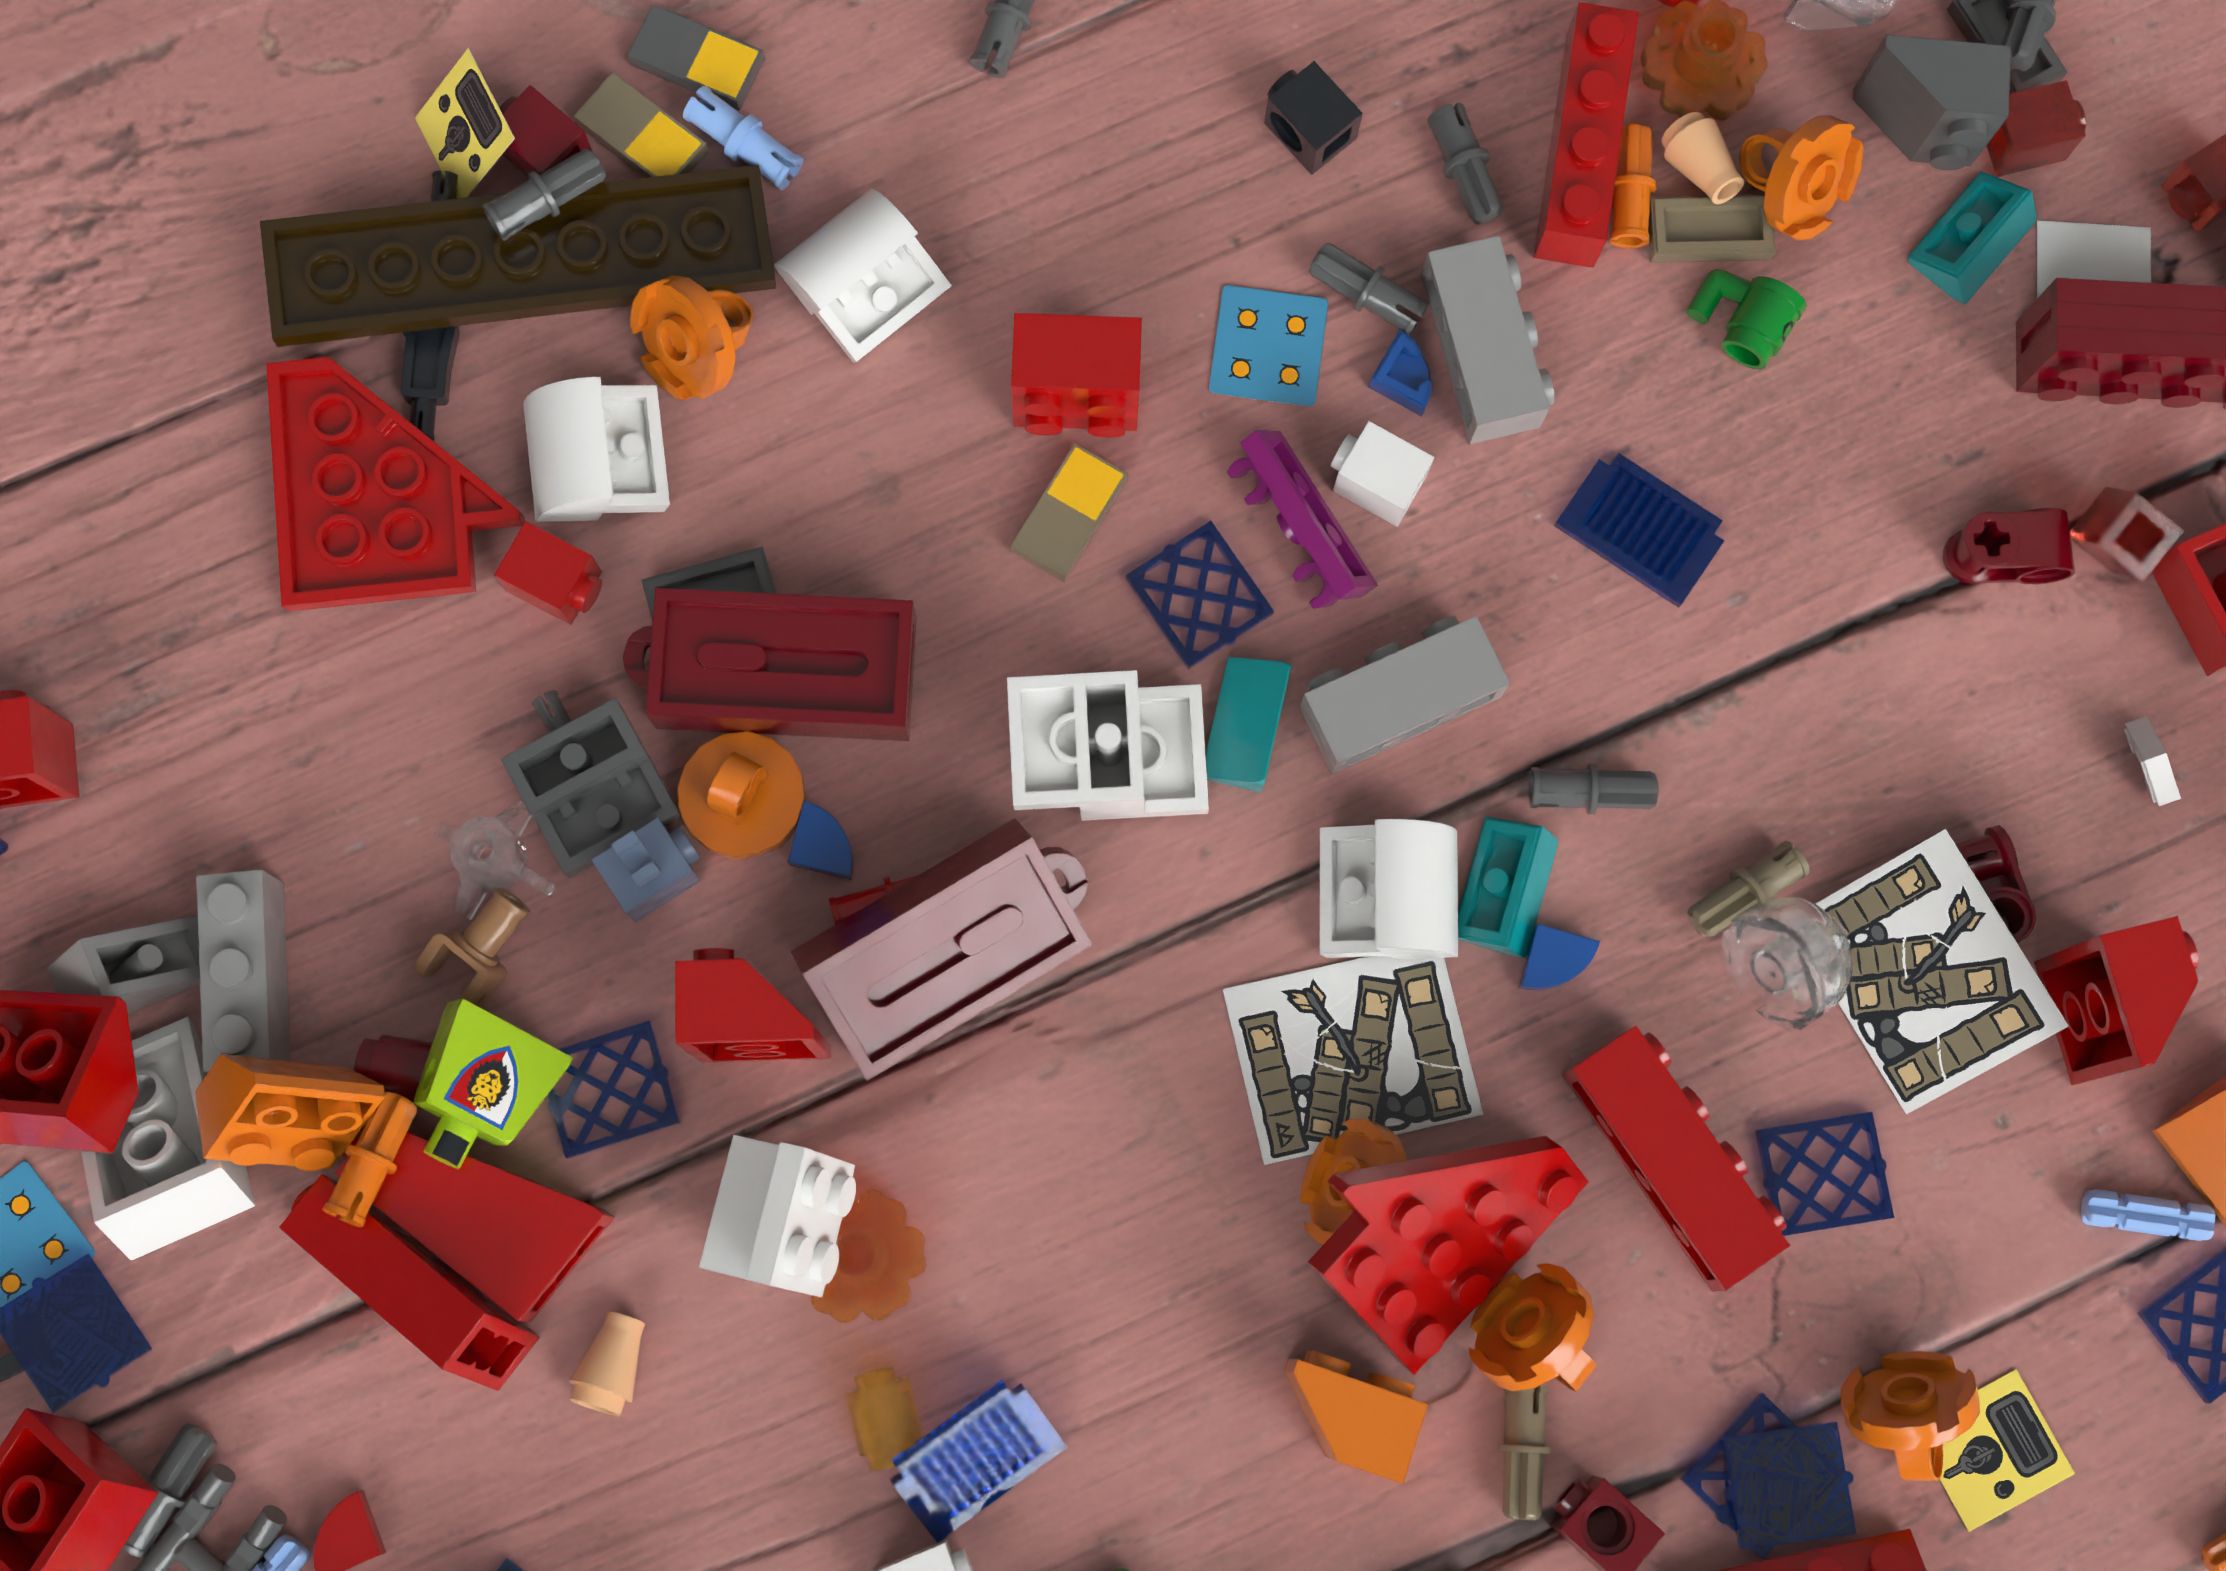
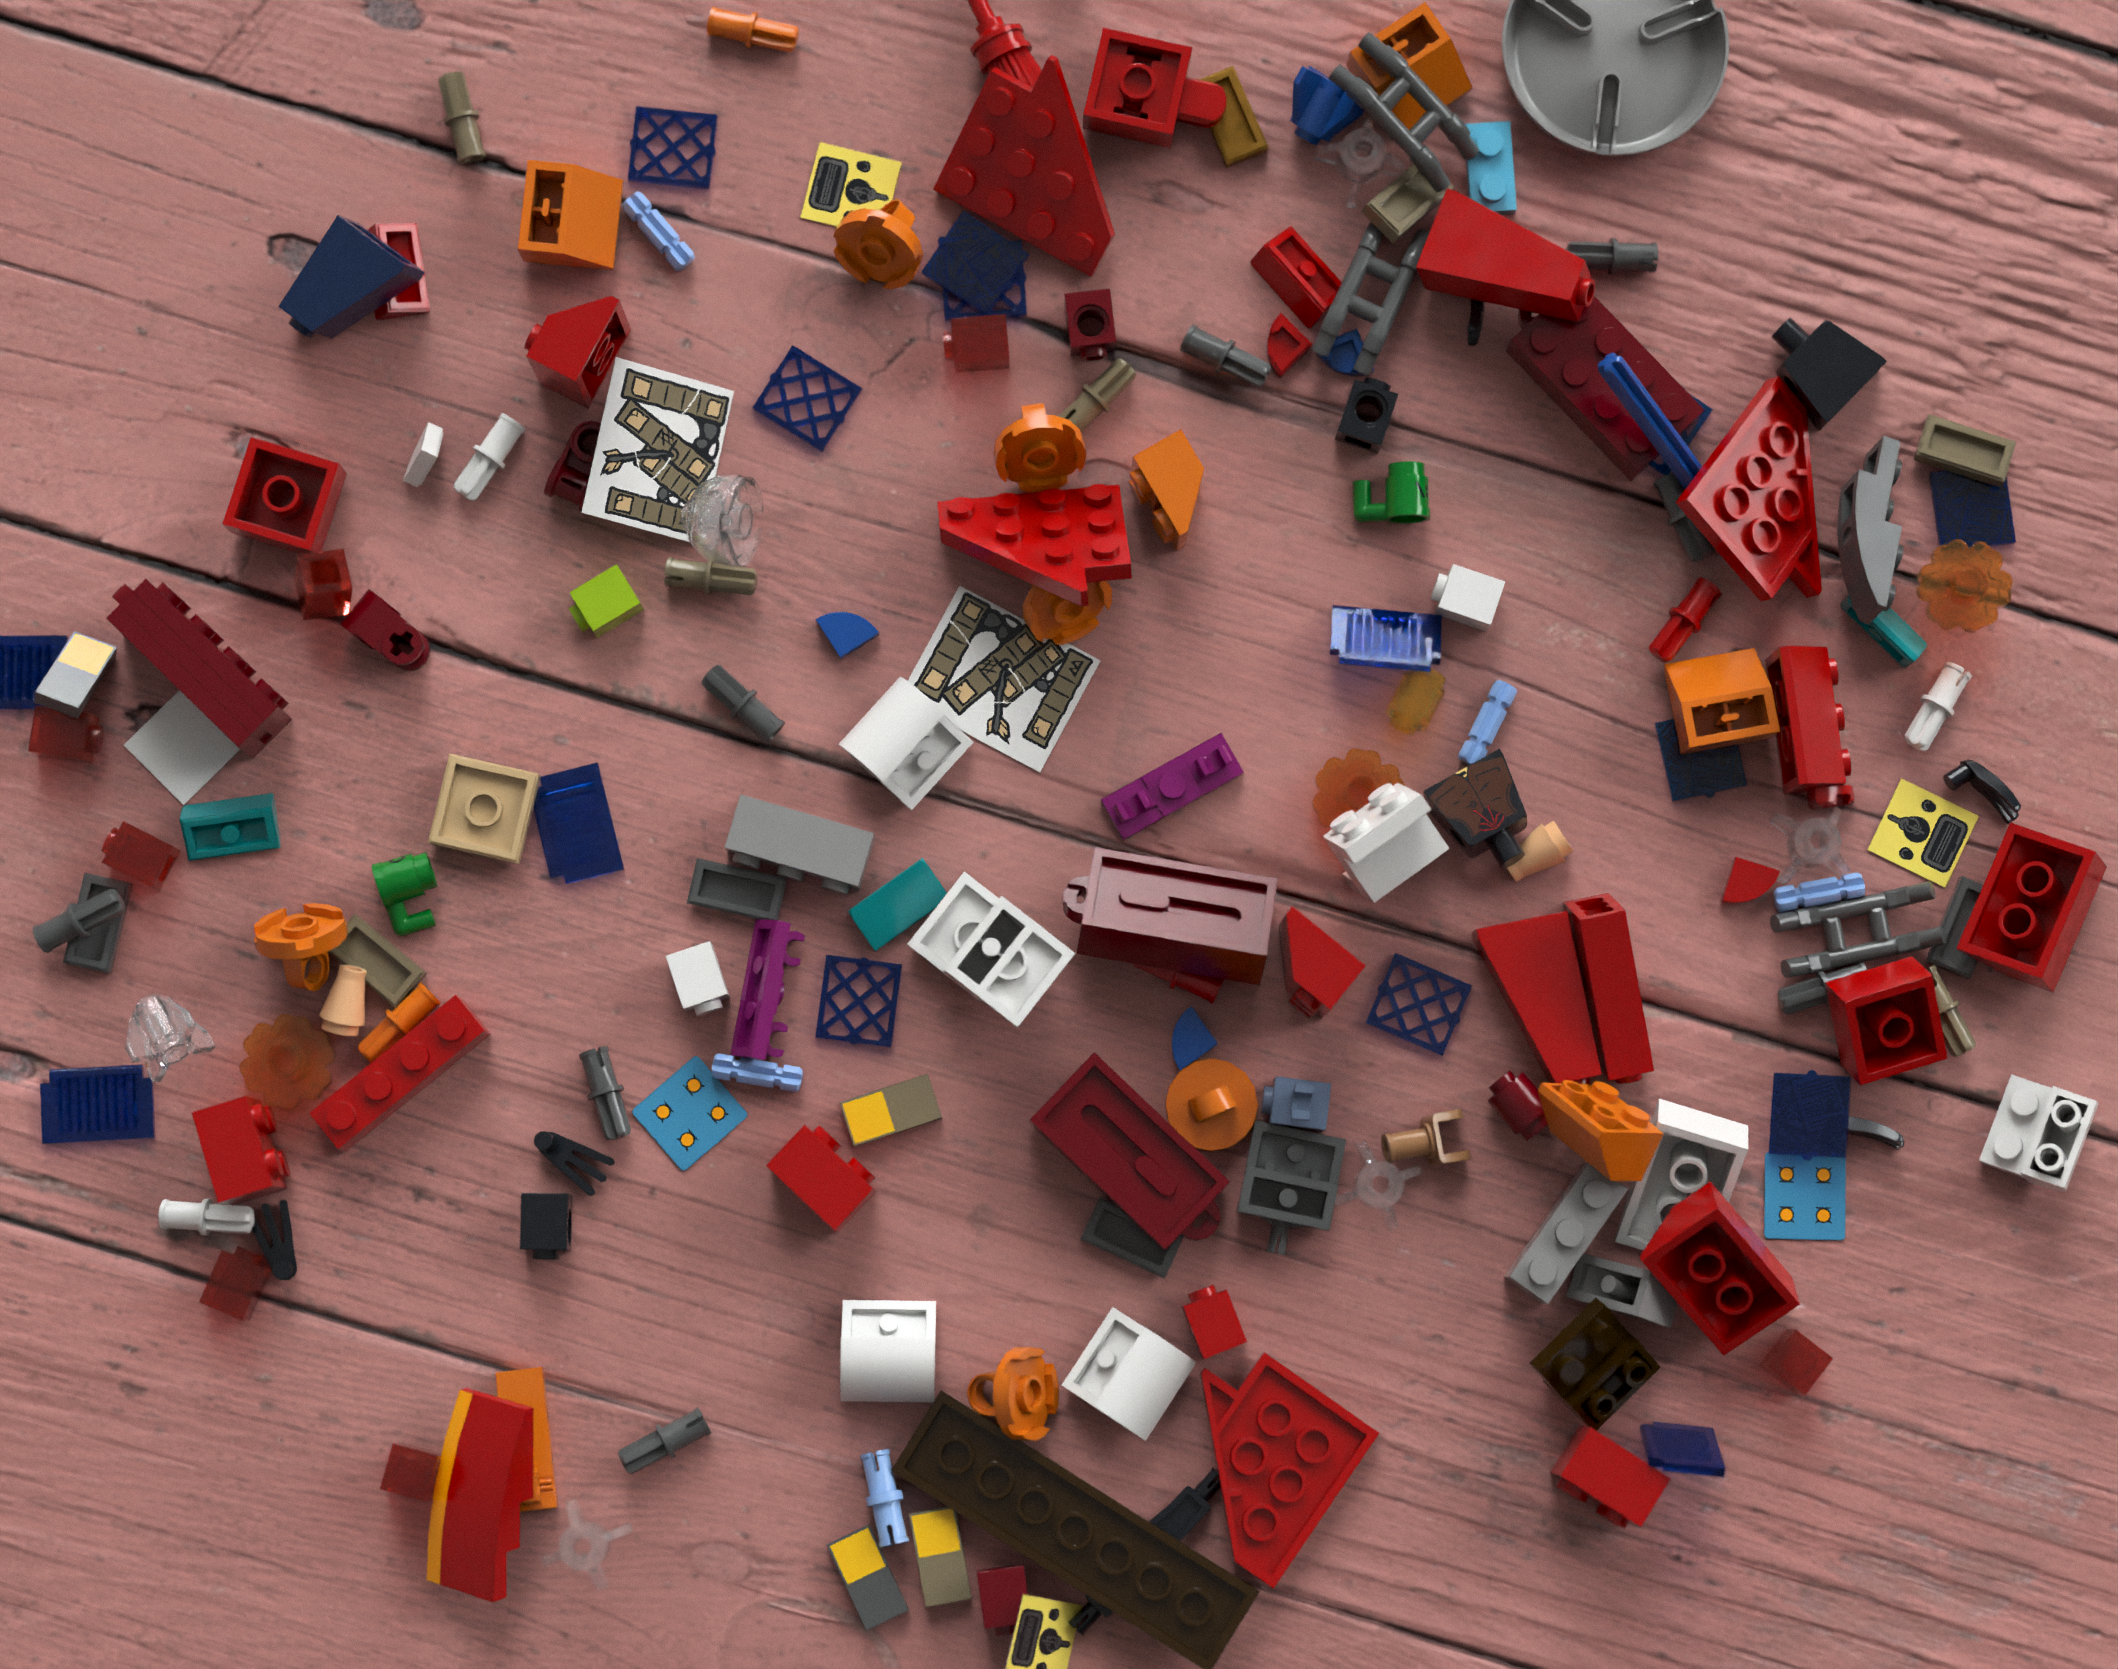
camera: 140 degrees left, 5 degrees up
(98, 861) = (1594, 1365): none -> dark brown brick
(371, 1159) = (1576, 1059): orange axle -> none
(483, 1080) = (1482, 1054): lime torso -> none
(544, 193) = (1032, 1548): dark grey axle -> none
(708, 1356) = (1481, 809): none -> torso
(784, 1463) = (1487, 722): none -> light blue axle
(1069, 1094) = (1172, 786): none -> magenta plate
(1224, 440) = (757, 1072): none -> light blue axle
(1360, 198) = (560, 1150): none -> black piece
(1403, 375) = (629, 1027): blue tile -> none
(1423, 595) = (736, 890): none -> dark grey tile
(1465, 162) = (482, 1118): dark grey axle -> none
(1487, 339) = (567, 1003): light grey brick -> none
(1506, 886) = (837, 693): teal slope -> none
(1677, 1159) = (881, 472): red brick -> none
(1705, 1395) = (978, 343): none -> clear red brick
(1748, 459) = (484, 809): none -> tan plate
(1829, 768) = (604, 602): none -> lime brick
(1937, 97) = (185, 912): dark grey slope -> none
(2086, 816) = (488, 457): none -> white axle

